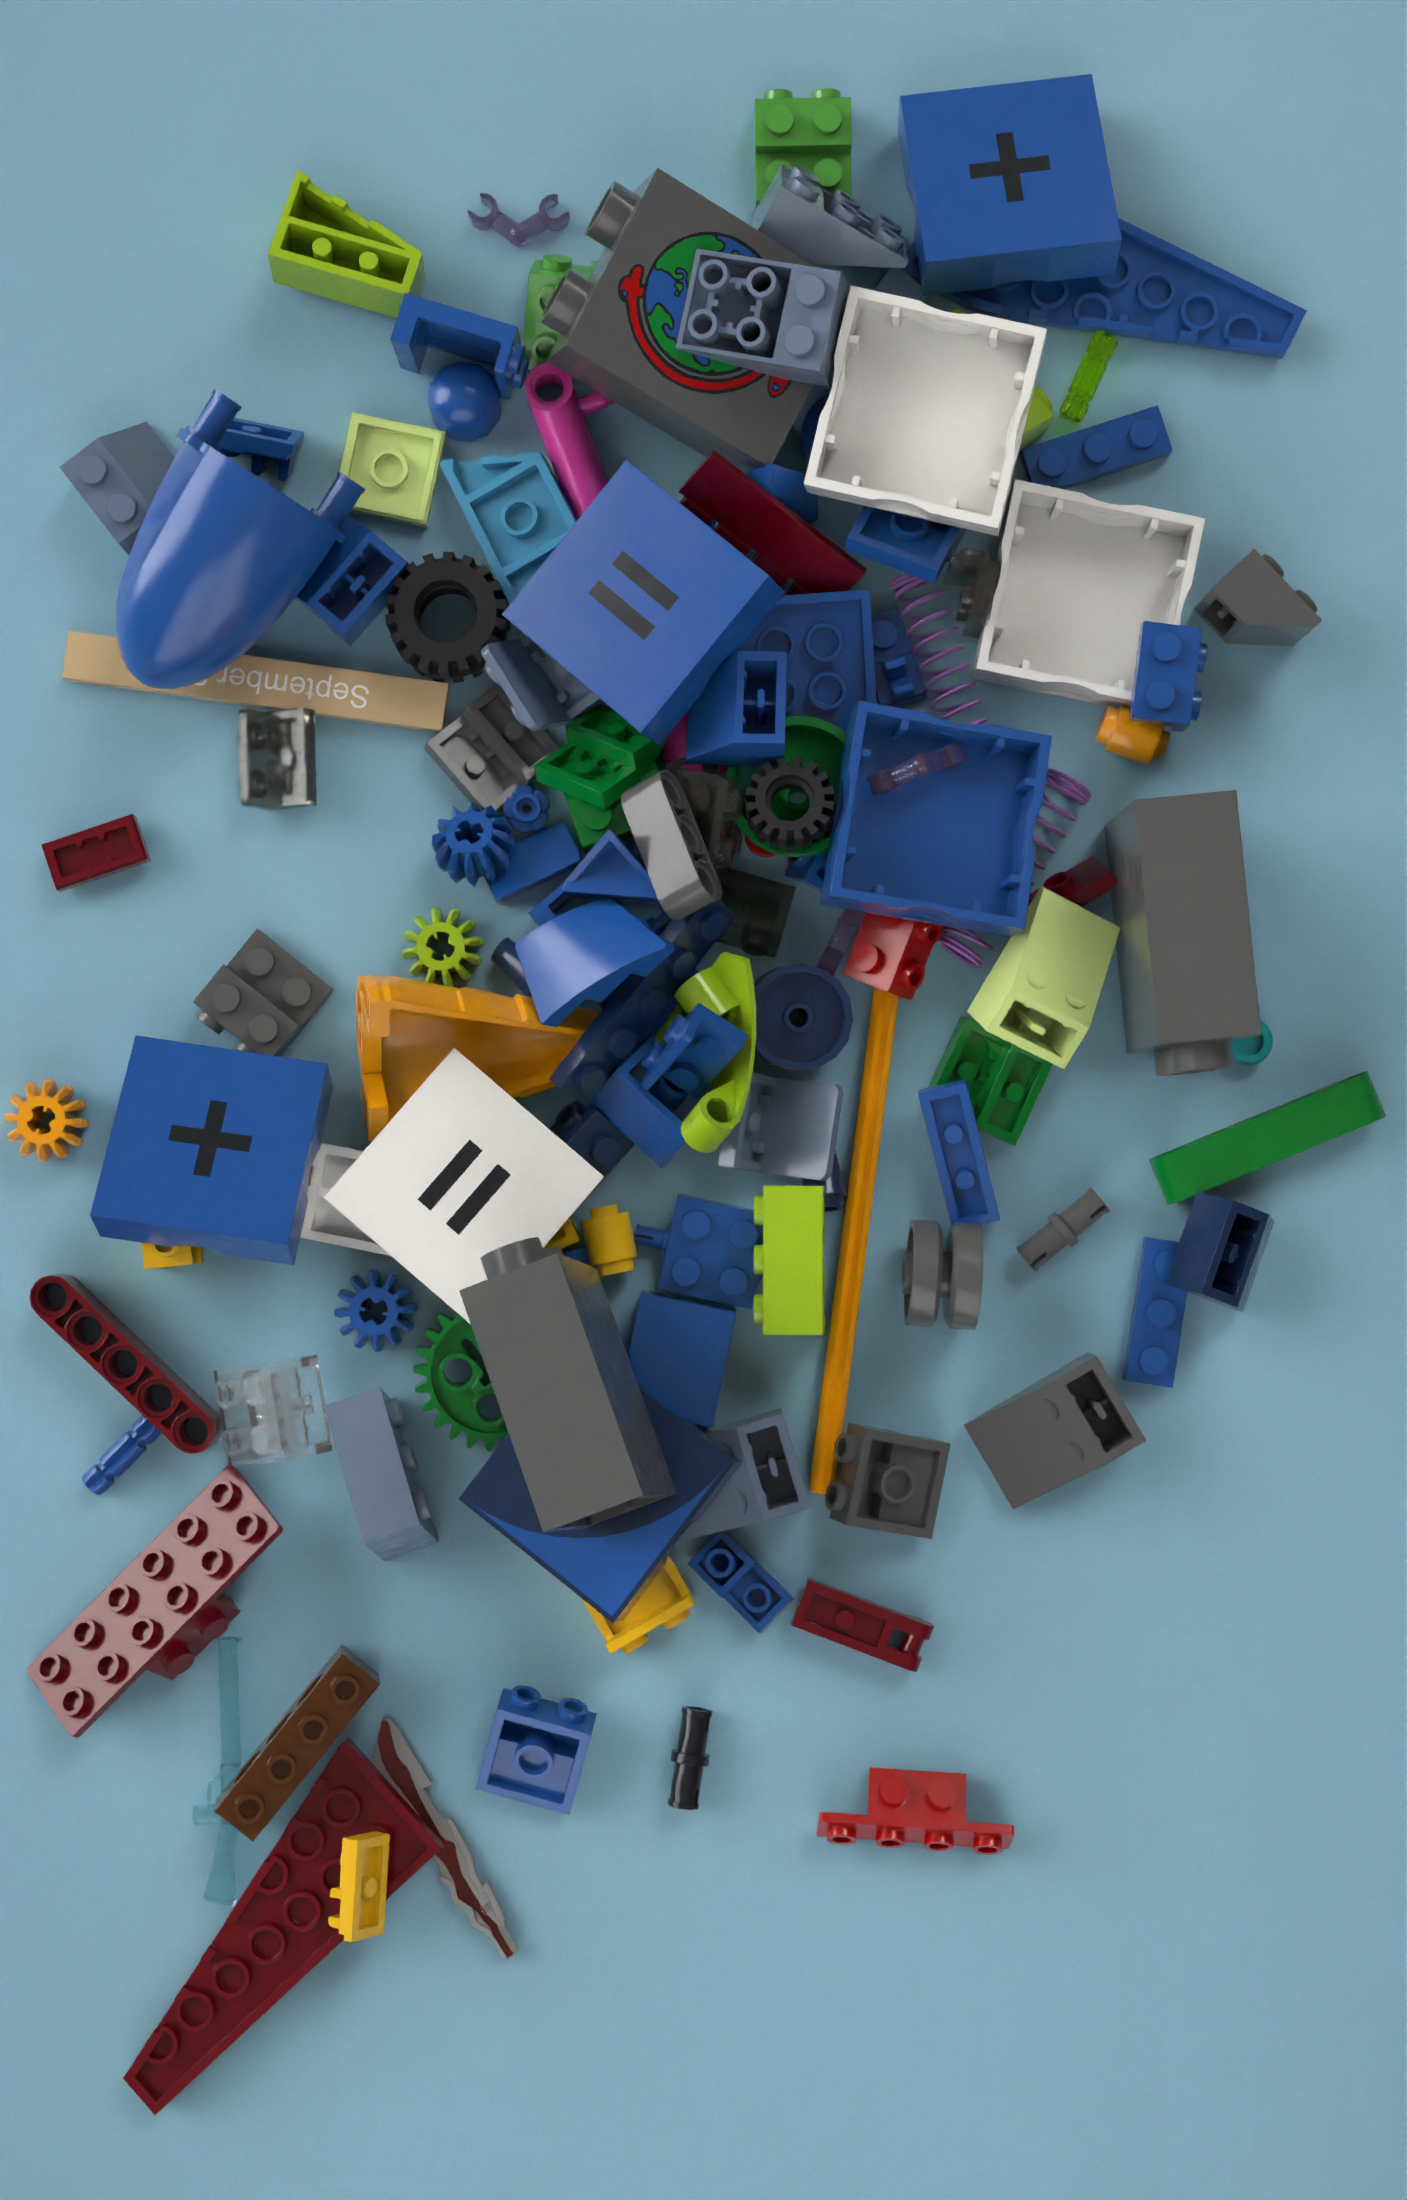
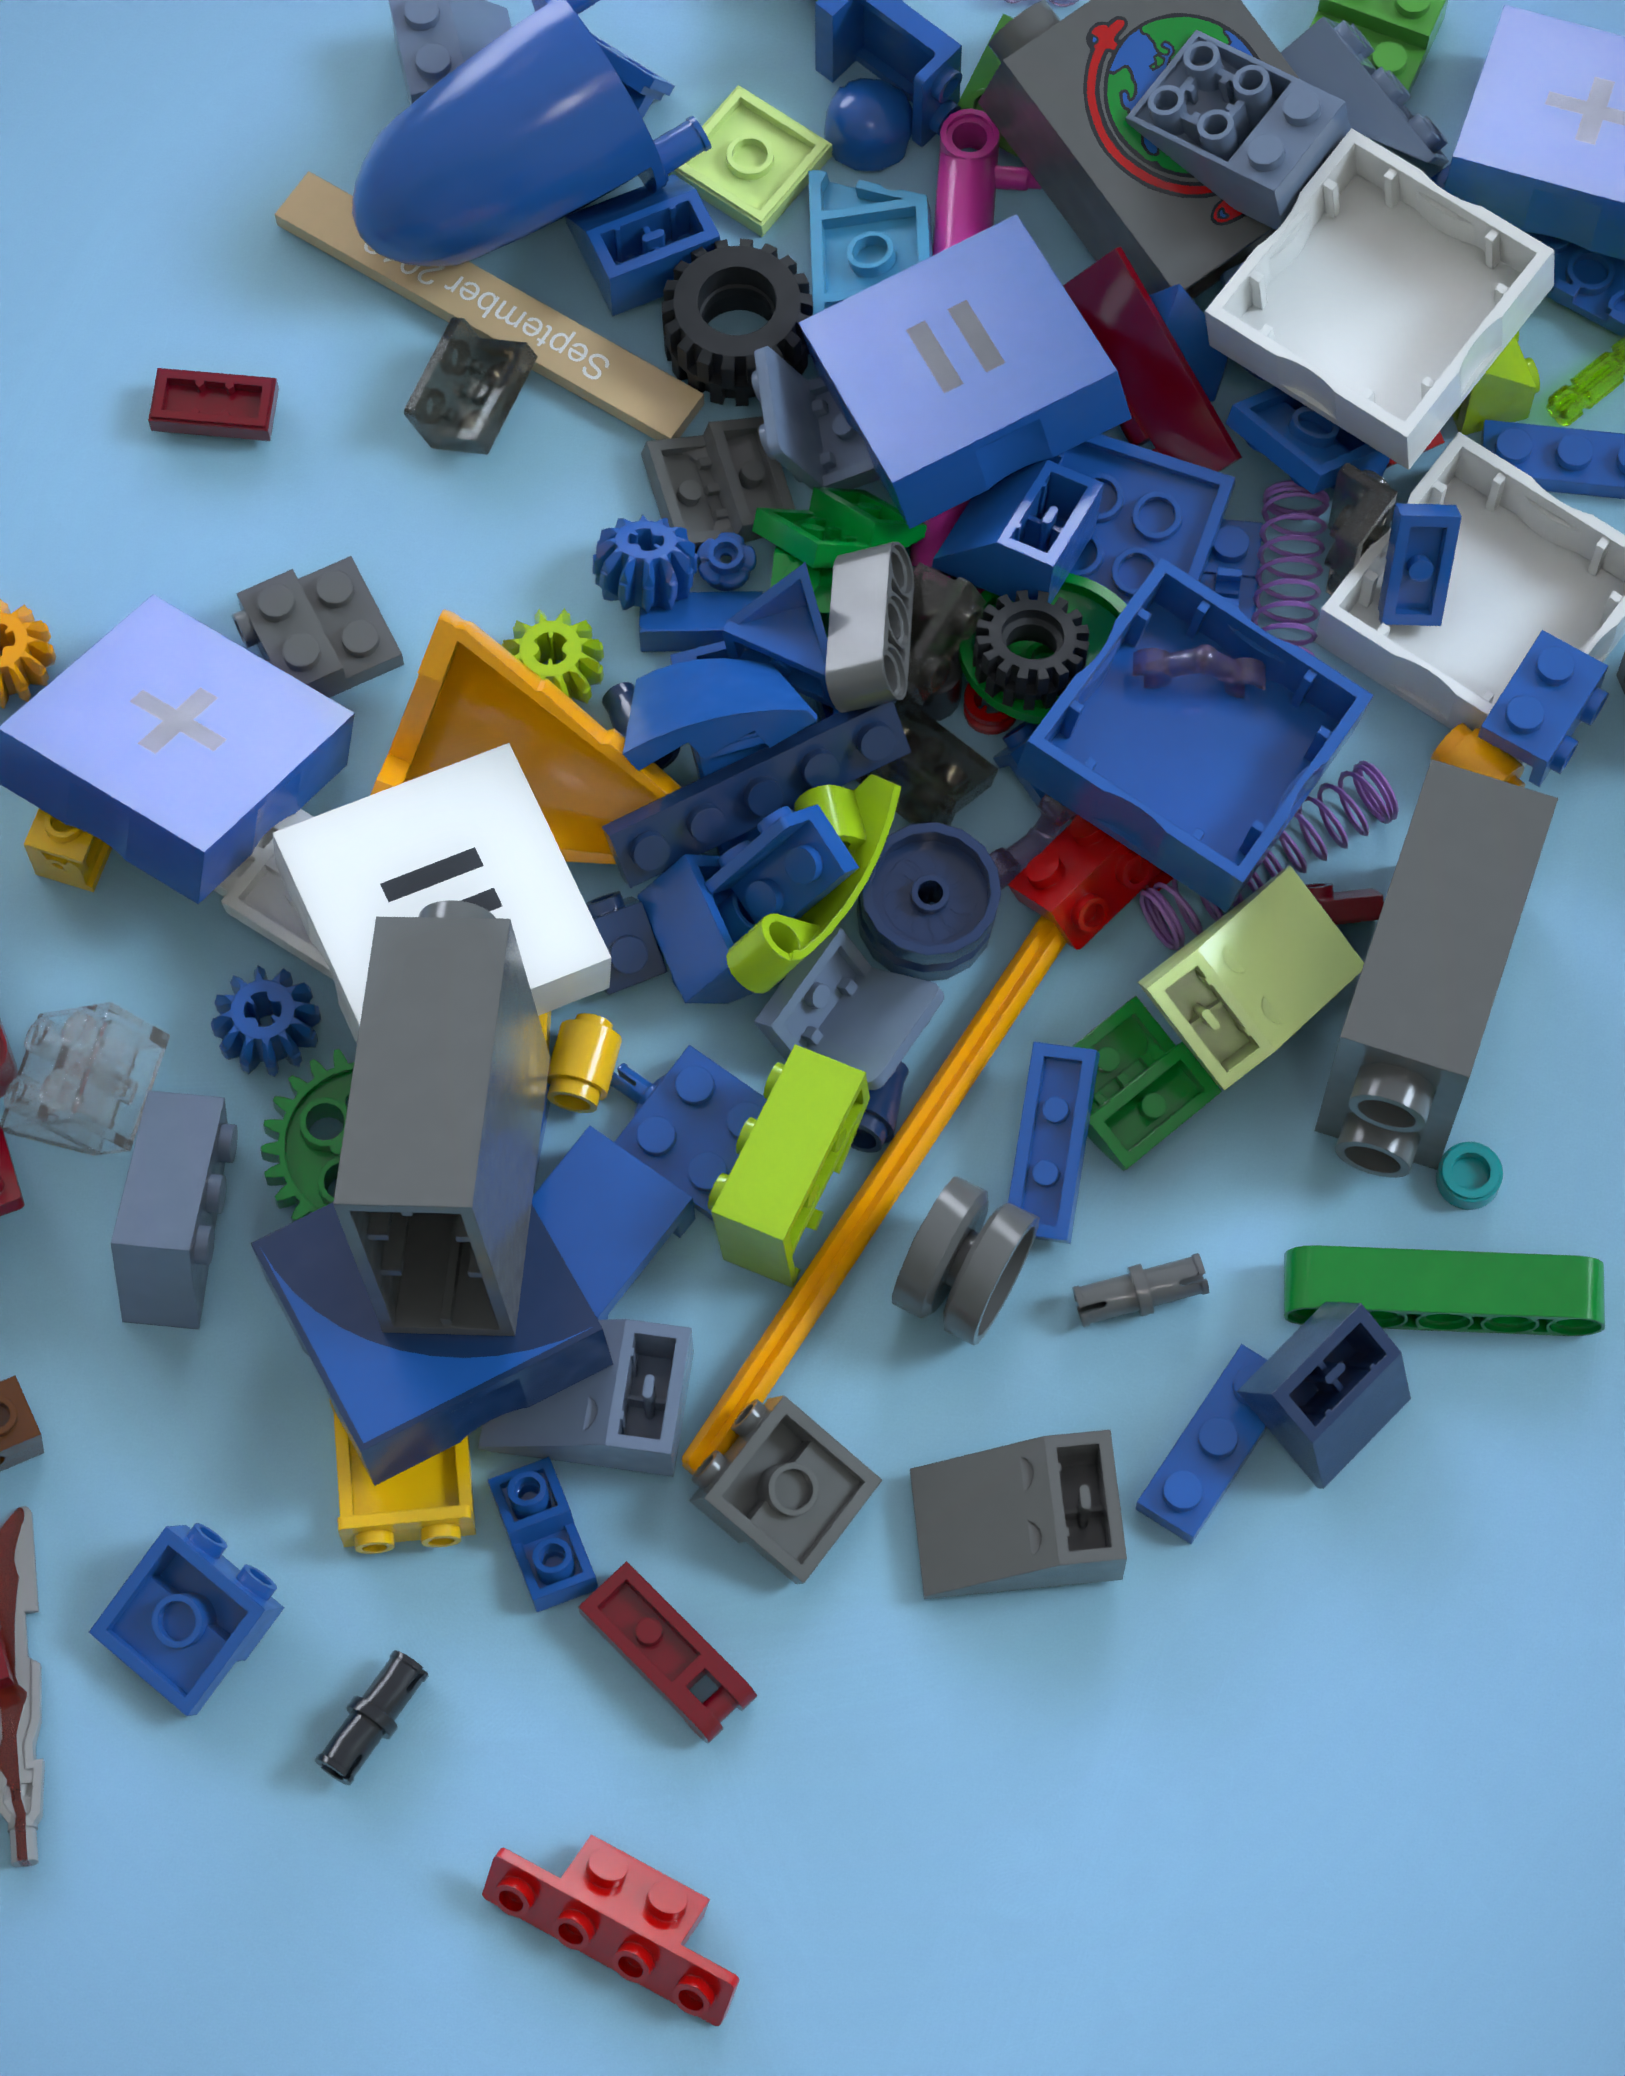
camera: 30 degrees right, 20 degrees down
(1032, 602) = (1418, 564): none -> blue plate

